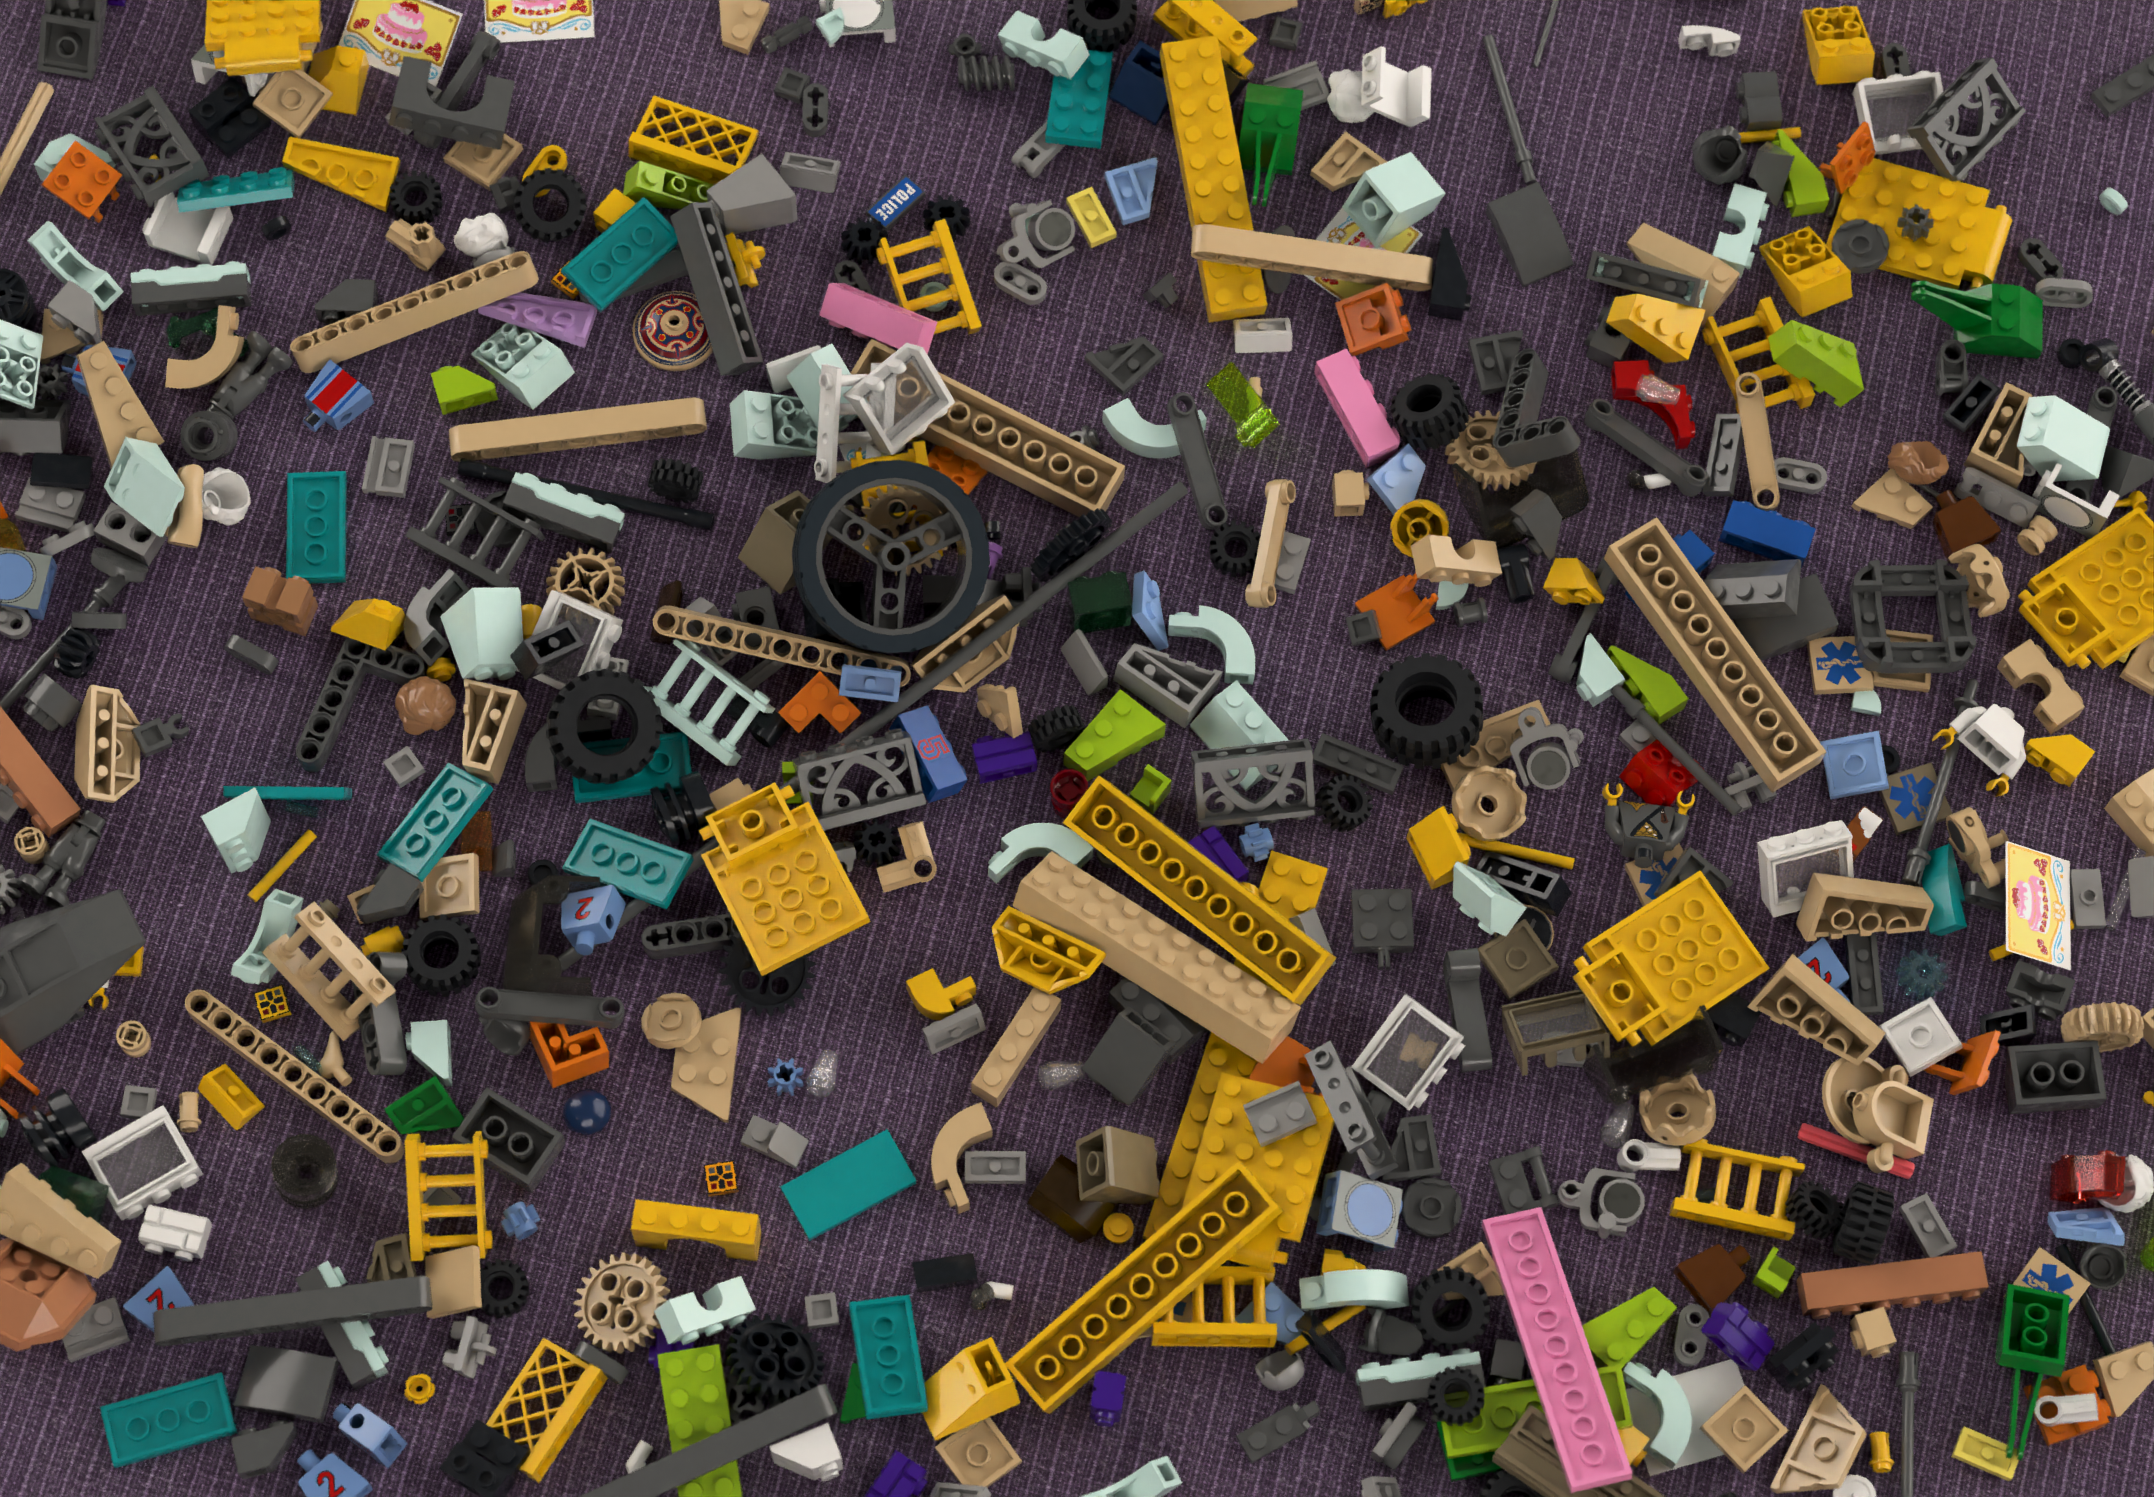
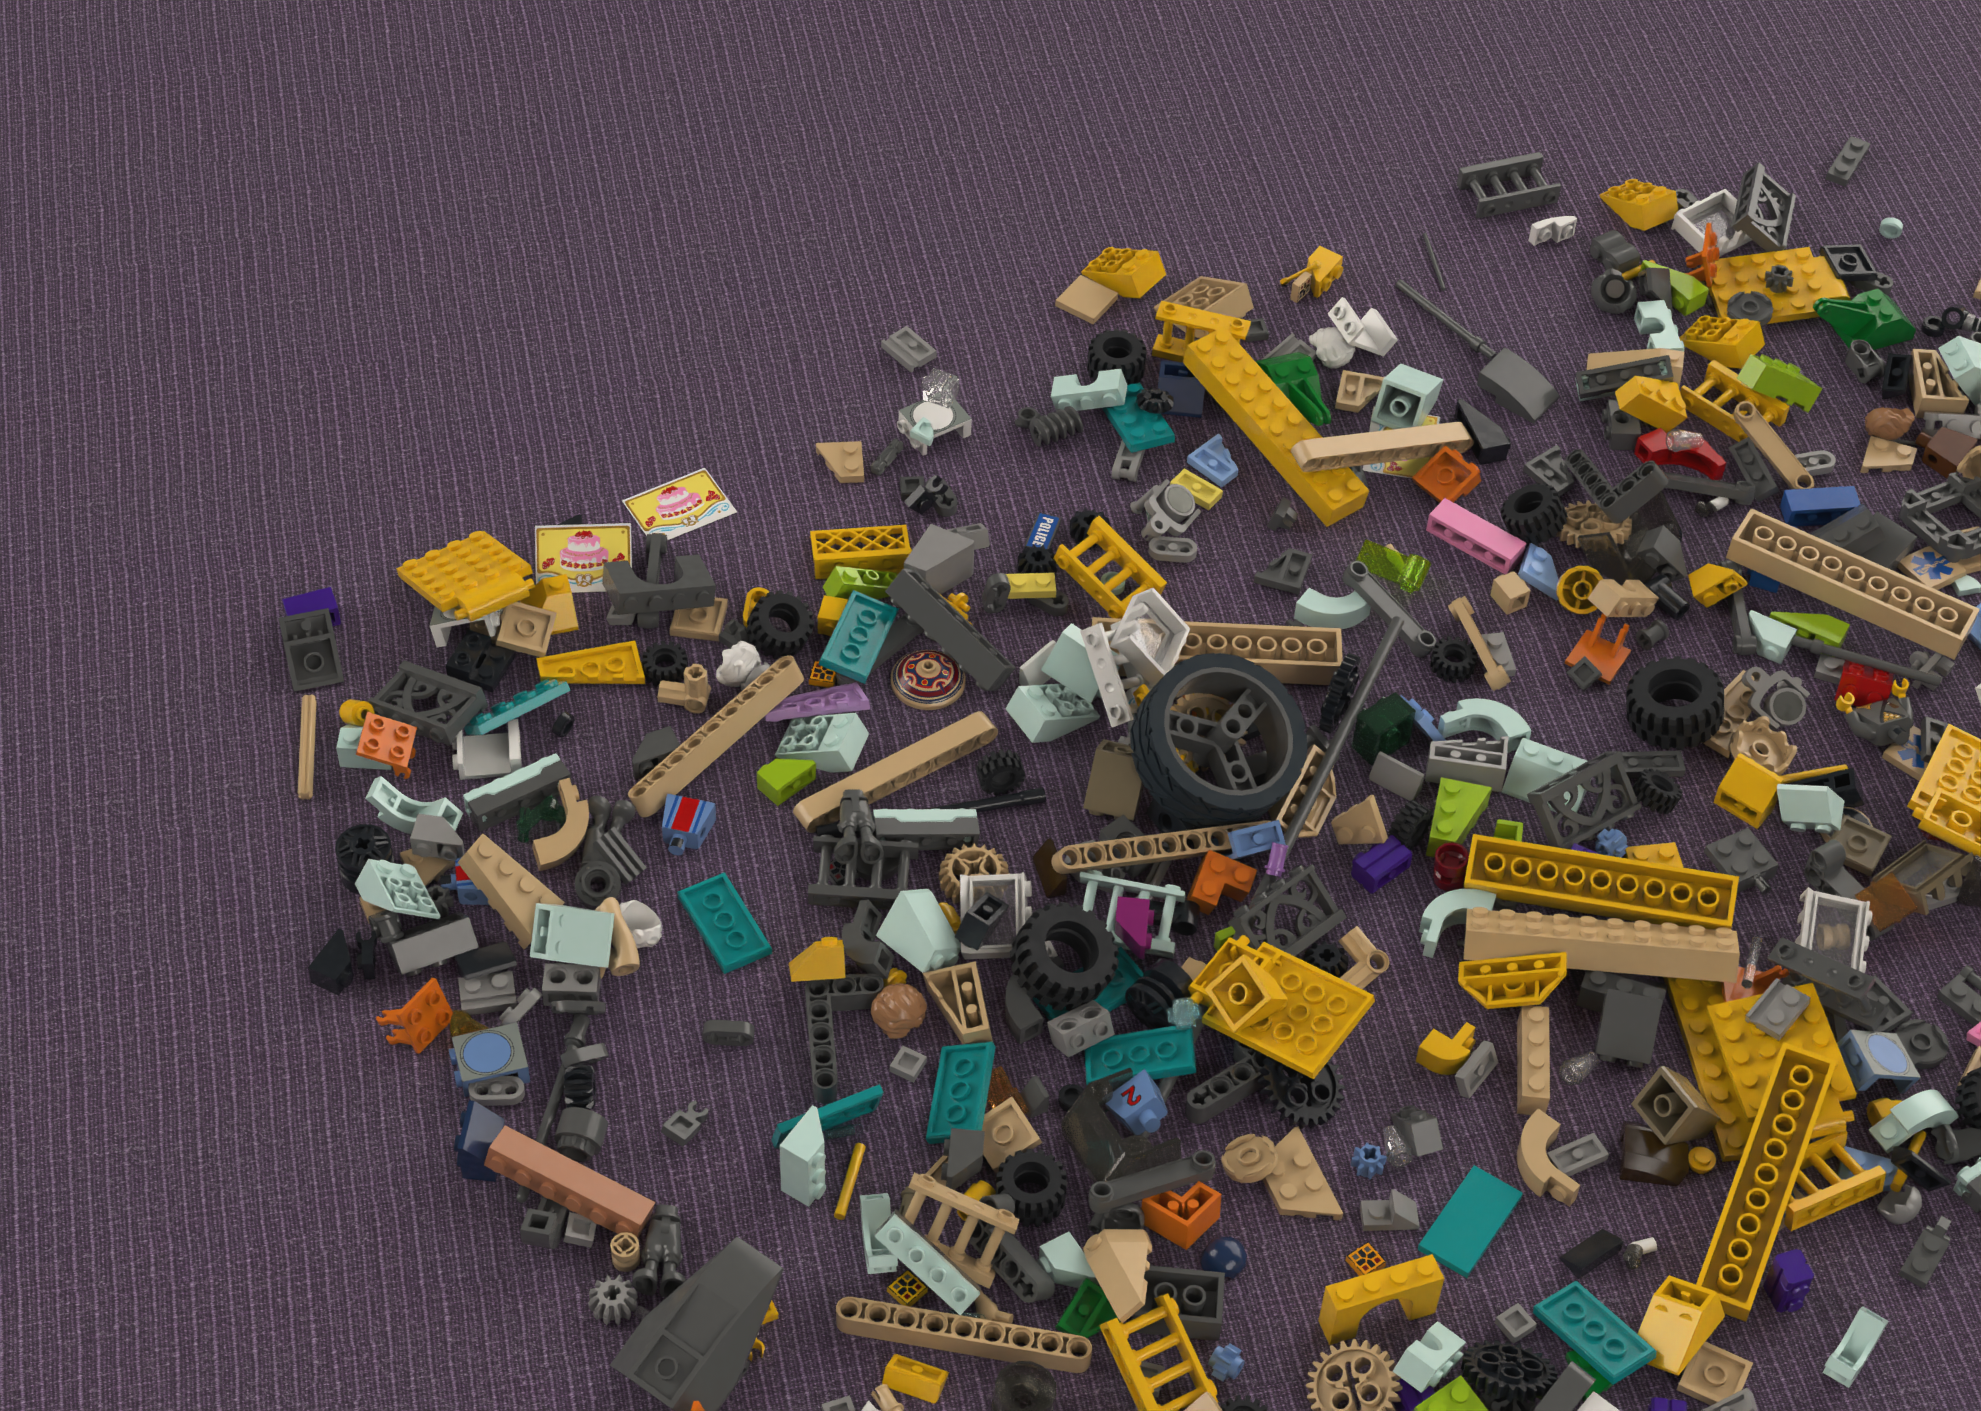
camera: 25 degrees left, 20 degrees down
(79, 126) = (355, 711): none -> yellow brick
(105, 747) = (641, 1147): tan wedge -> none
(137, 1044) = (805, 1365): tan wheel -> none
(257, 432) = (622, 852): none -> dark grey tile
(280, 600) = (733, 979): medium nougat brick -> none
(287, 994) = (928, 1262): none -> light aqua piece
(388, 467) = (759, 855): light grey plate -> none
(463, 1081) = (1120, 1266): none -> tan wedge
(491, 474) = (856, 816): none -> dark grey piece
(587, 807) = (1080, 1028): none -> light grey brick
(683, 844) = (1184, 1013): none -> clear light blue gear
(696, 719) = (1132, 923): none -> magenta slope
(742, 858) = (1245, 994): none -> yellow slope
(788, 107) = (924, 497): none -> black plate
(794, 261) = (996, 593): none -> dark grey beam
(839, 265) = (1032, 585): none -> light yellow plate
(853, 1067) = (1418, 1129): none -> dark grey slope
(875, 317) = (1083, 604): bright pink brick -> none
(875, 719) = (1276, 859): none -> medium lavender pin
(934, 755) = (1343, 889): blue brick -> none
(1098, 97) = (1155, 401): none -> black gear
(1262, 335) = (1373, 519): white slope -> none
(1311, 1041) = (1752, 961): none -> clear bar
(1449, 594) = (1633, 629): light aqua tile -> none
(1488, 1042) = (1887, 901): none -> clear orange piece
(2022, 230) = (1849, 262): none -> black plate
(2064, 292) = (1901, 292): light grey plate -> none

